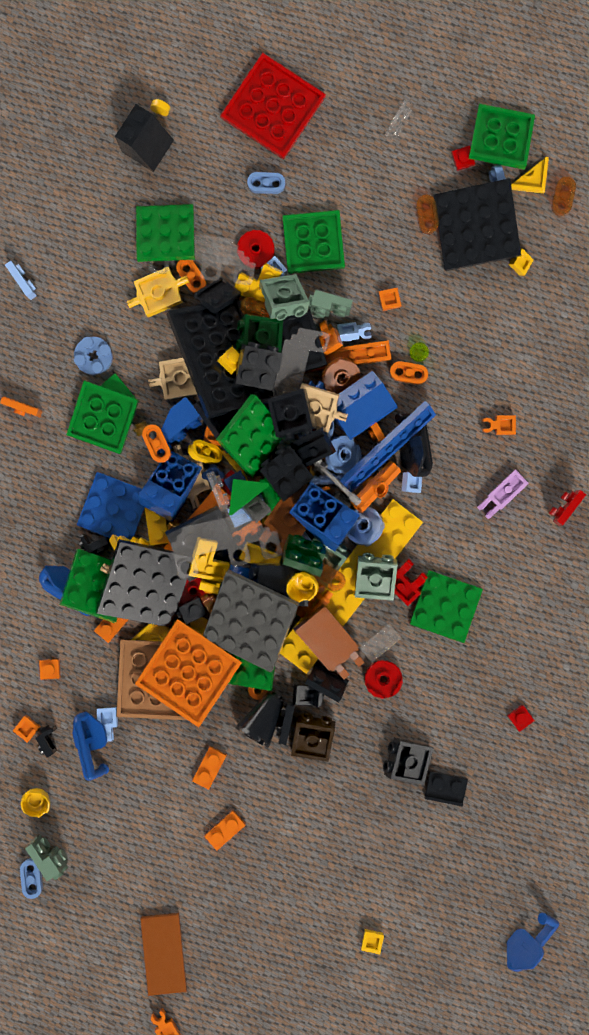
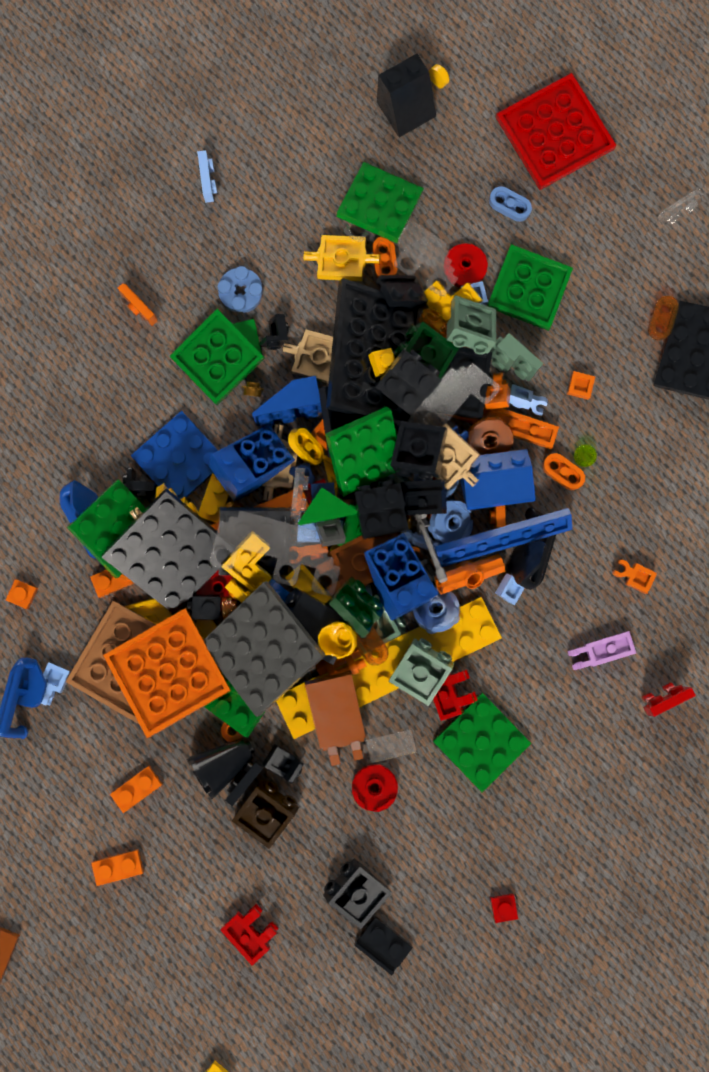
camera: 15 degrees right, 5 degrees down
(139, 374) = (278, 333): none -> black bracket
(157, 443) = (259, 409): orange plate -> none
(326, 682) = (311, 759): black plate -> none
(342, 832) = (246, 938): none -> red plate

